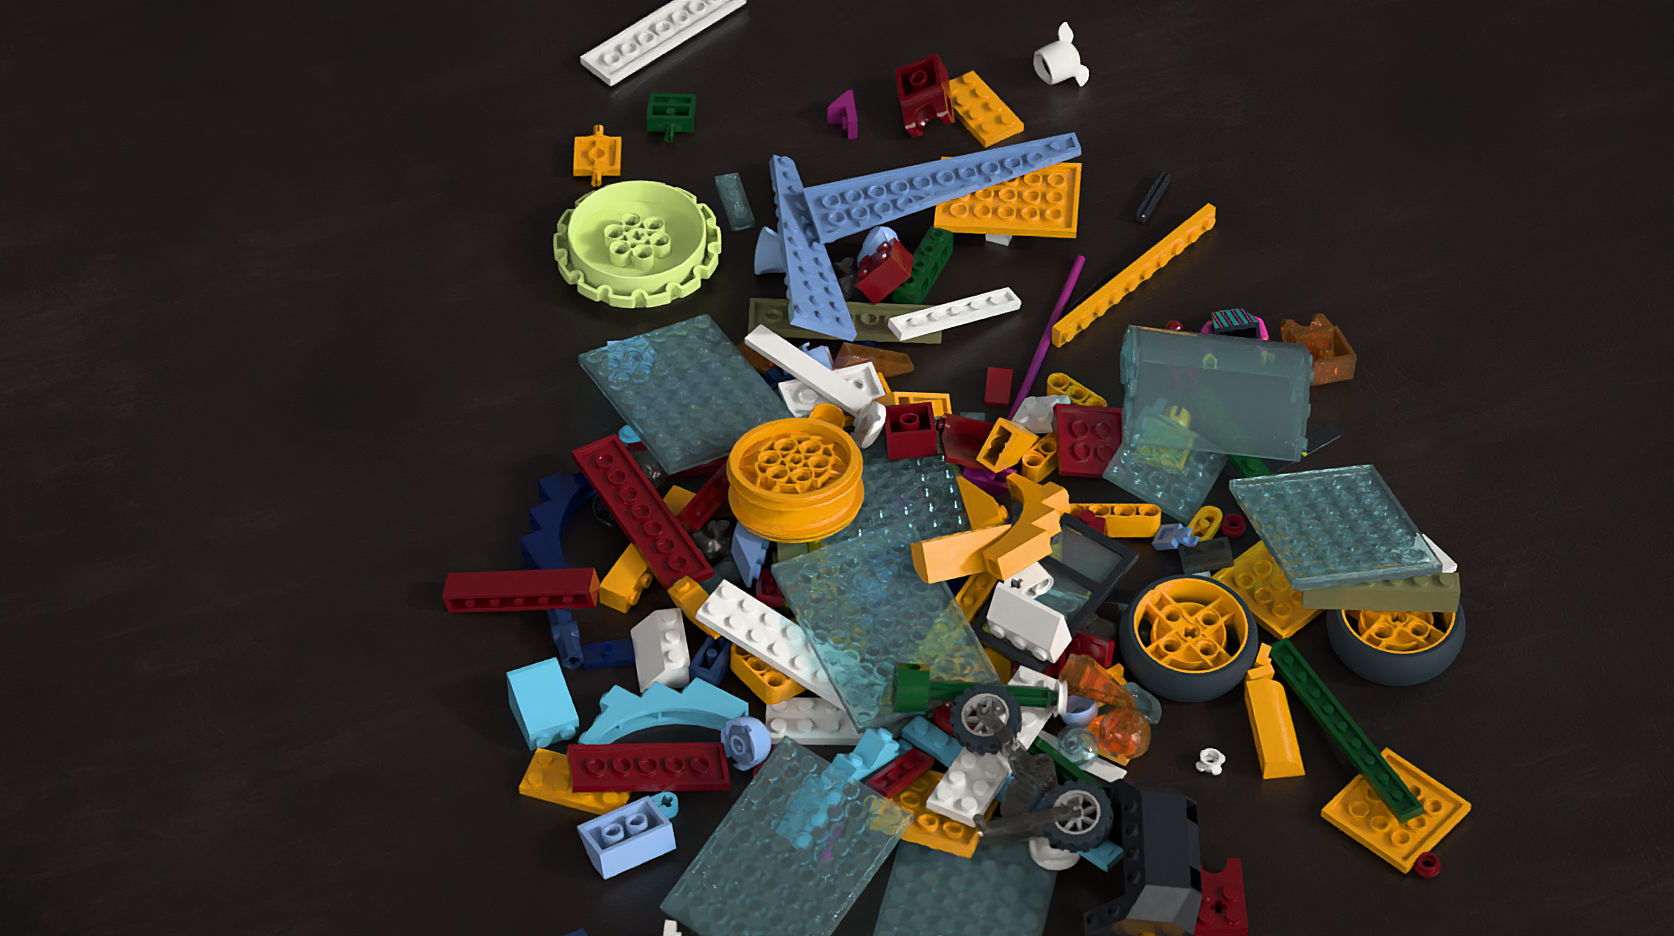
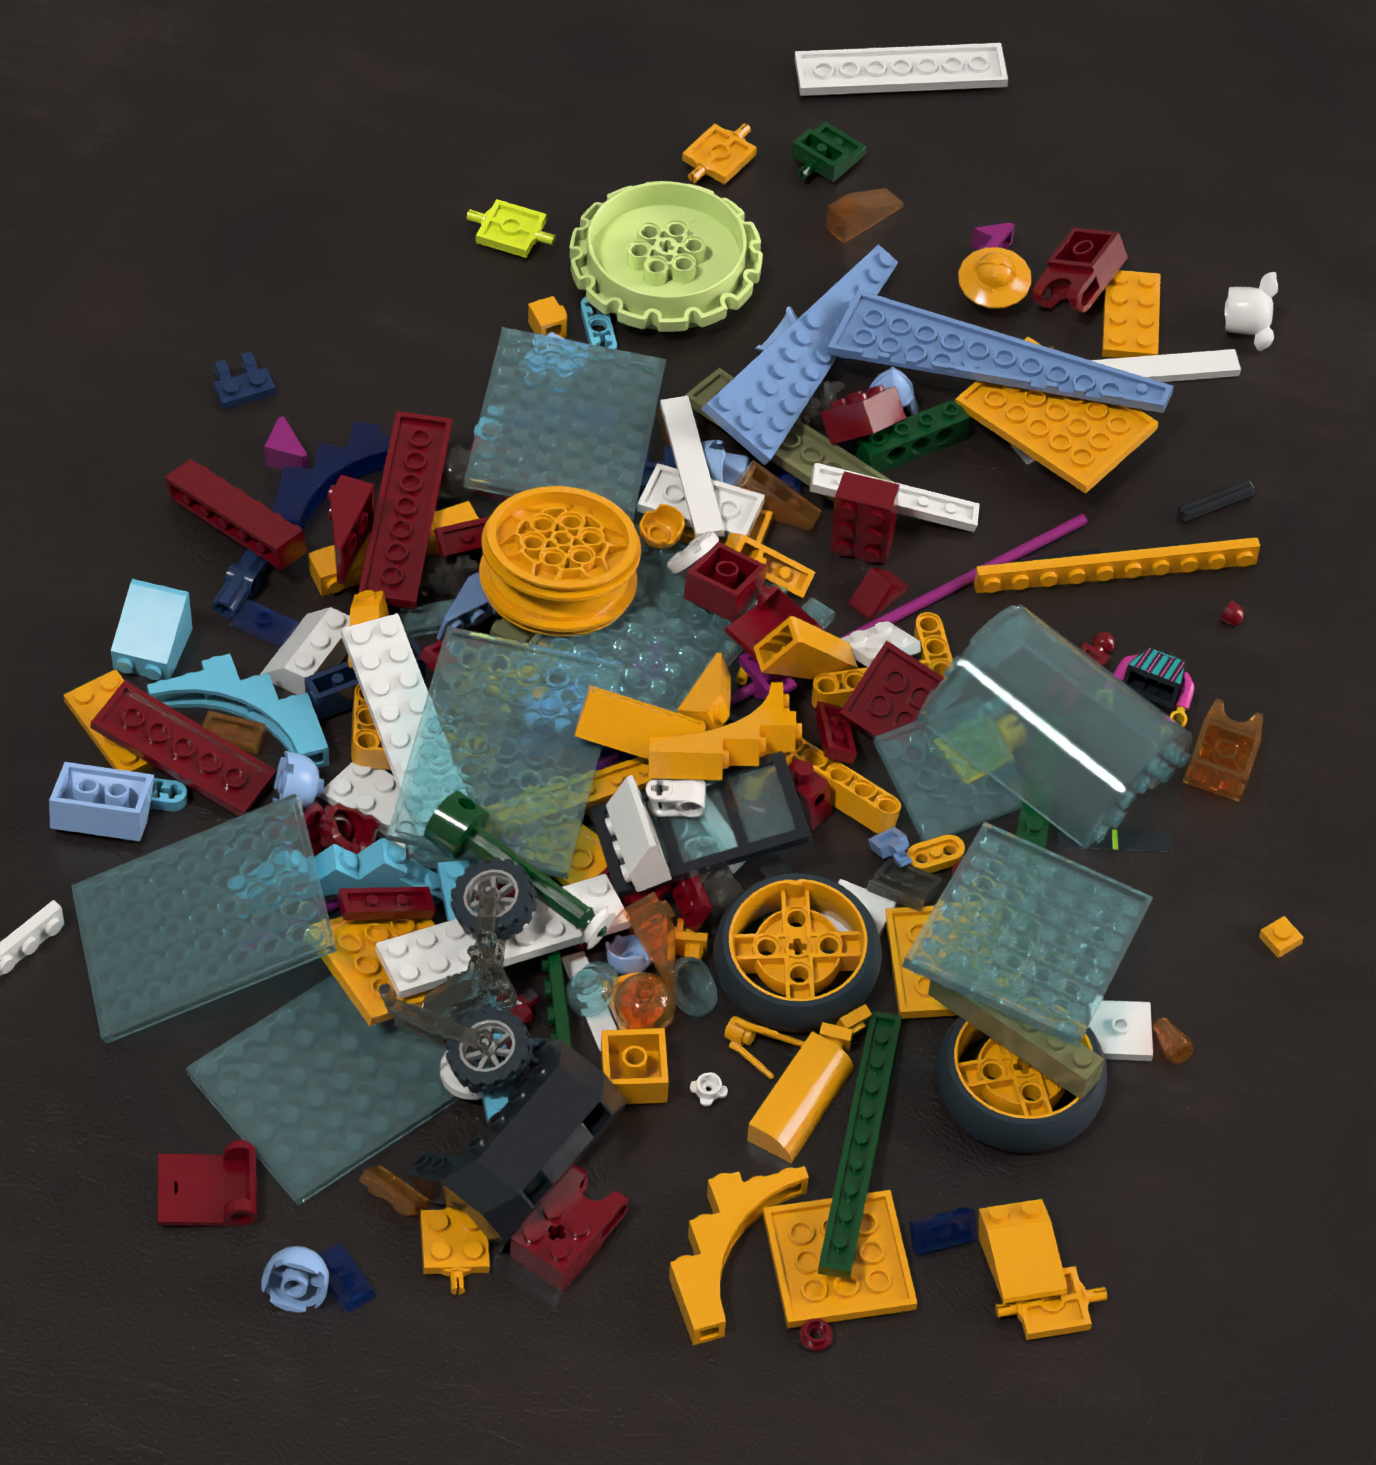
camera: 35 degrees right, 5 degrees up
(424, 508) = (244, 388): none -> dark blue plate
(502, 528) = (284, 447): none -> magenta slope
(503, 288) = (511, 228): none -> neon yellow plate
(594, 333) = (547, 317): none -> light orange brick
(617, 545) = (352, 520): none -> dark red slope
(628, 314) = (591, 320): none -> medium azure beam
(671, 732) = (238, 731): none -> clear orange plate
(734, 142) = (860, 211): none -> clear orange slope
(734, 201) = (805, 270): clear light blue plate -> none
(825, 743) = (347, 828): none -> dark red hair
(873, 133) = (994, 277): none -> light orange helmet
(955, 336) = (864, 518): none -> dark red piece
(1046, 122) = (1180, 366): none -> white tile
(1077, 489) = (835, 733): none -> dark red plate
(1159, 764) = (636, 1063): none -> light orange brick
(1197, 712) = (744, 1032): none -> light orange plant
(1233, 263) = (1233, 614): none -> dark red hinge
(1323, 875) = (712, 1238): none -> light orange arch
(1441, 750) = (943, 1230): none -> clear blue plate
(1458, 445) = (1281, 936): none -> light orange plate
(1460, 548) = (1174, 1043): none -> clear orange cone
(1503, 730) = (1021, 1251): none -> light orange slope
(1545, 751) = (1055, 1313): none -> light orange plate

